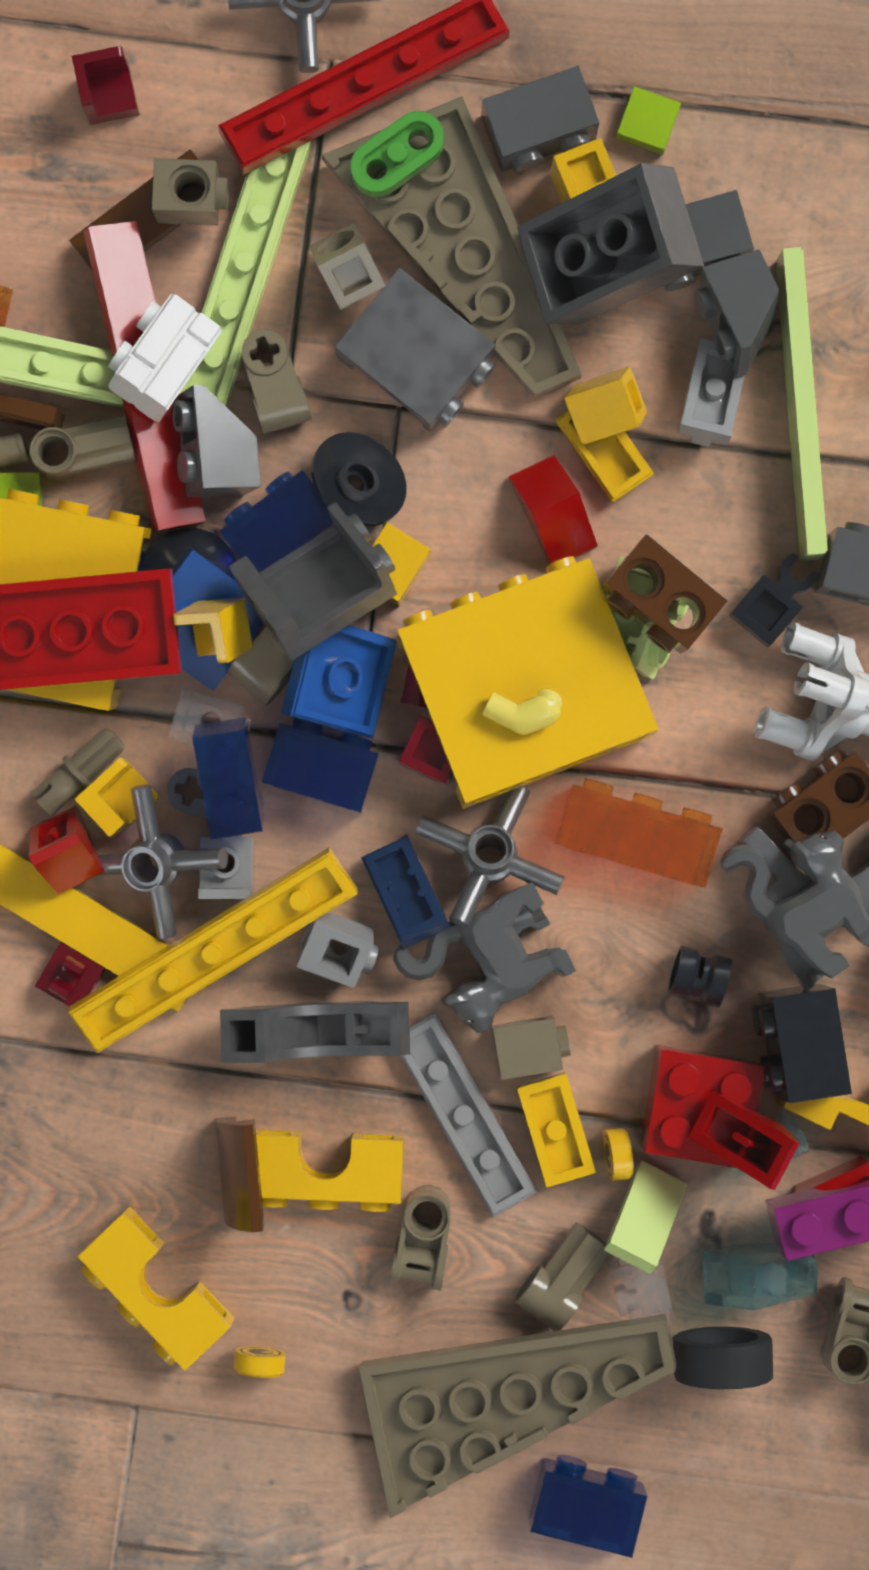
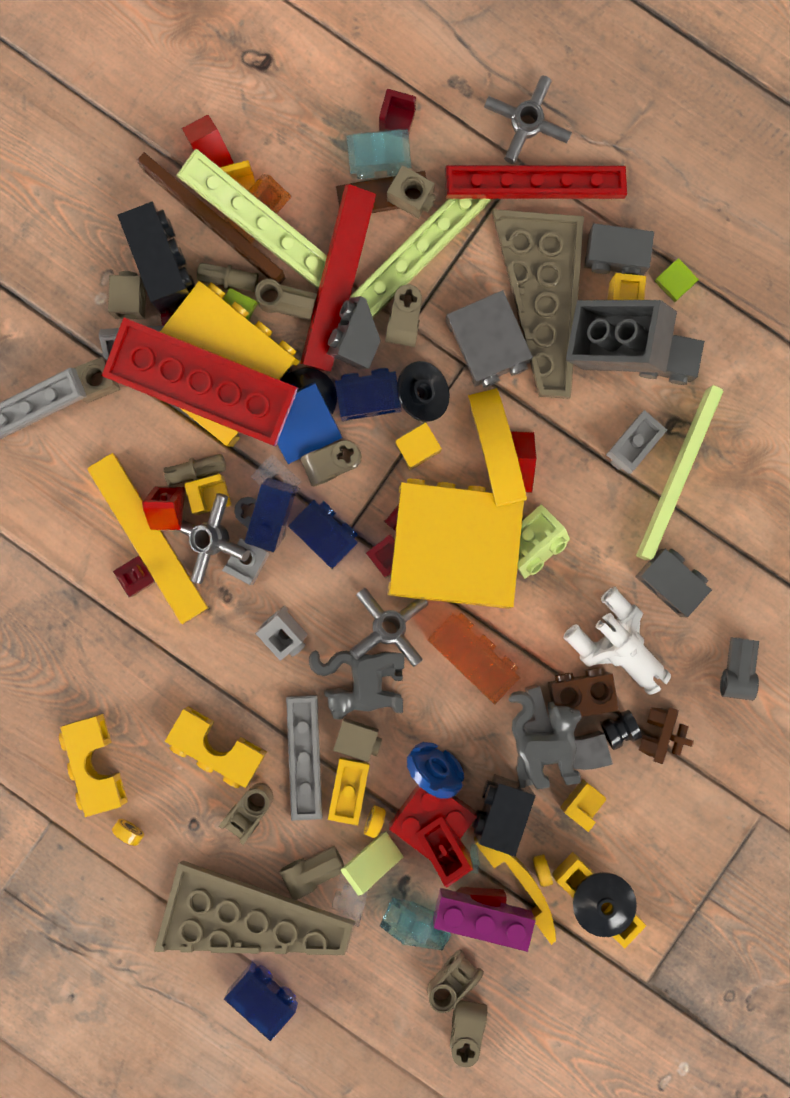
camera: 30 degrees right, 0 degrees up
(107, 157) = (378, 152): none -> clear light blue brick
(163, 357) = (352, 273): white brick -> none
(213, 950) = (216, 601): yellow tile -> none
(218, 627) = (307, 431): yellow panel -> none
(240, 1174) = (168, 728): reddish brown slope -> none
(314, 1030) = (247, 671): flat silver arch -> none
(319, 585) = (372, 437): flat silver panel -> none
(341, 681) = (358, 490): blue tile -> none
(347, 266) = (475, 274): dark tan brick -> none
(392, 151) = (531, 227): bright green plate -> none
(405, 892) = (334, 624): dark blue plate -> none
(512, 504) = (497, 447): none -> yellow slope
(526, 716) = (446, 564): light yellow arm -> none
(606, 405) = (575, 420): yellow panel -> none
(611, 460) = (562, 441): yellow tile -> none
(668, 1031) = (435, 770): none -> blue tile
(670, 583) = (560, 533): reddish brown brick -> none
(711, 979) = (467, 750): black wheel -> none
(723, 1357) = (374, 960): black tyre -> none
(740, 304) = (674, 403): dark grey slope -> none
(770, 605) = (607, 571): black plate -> none

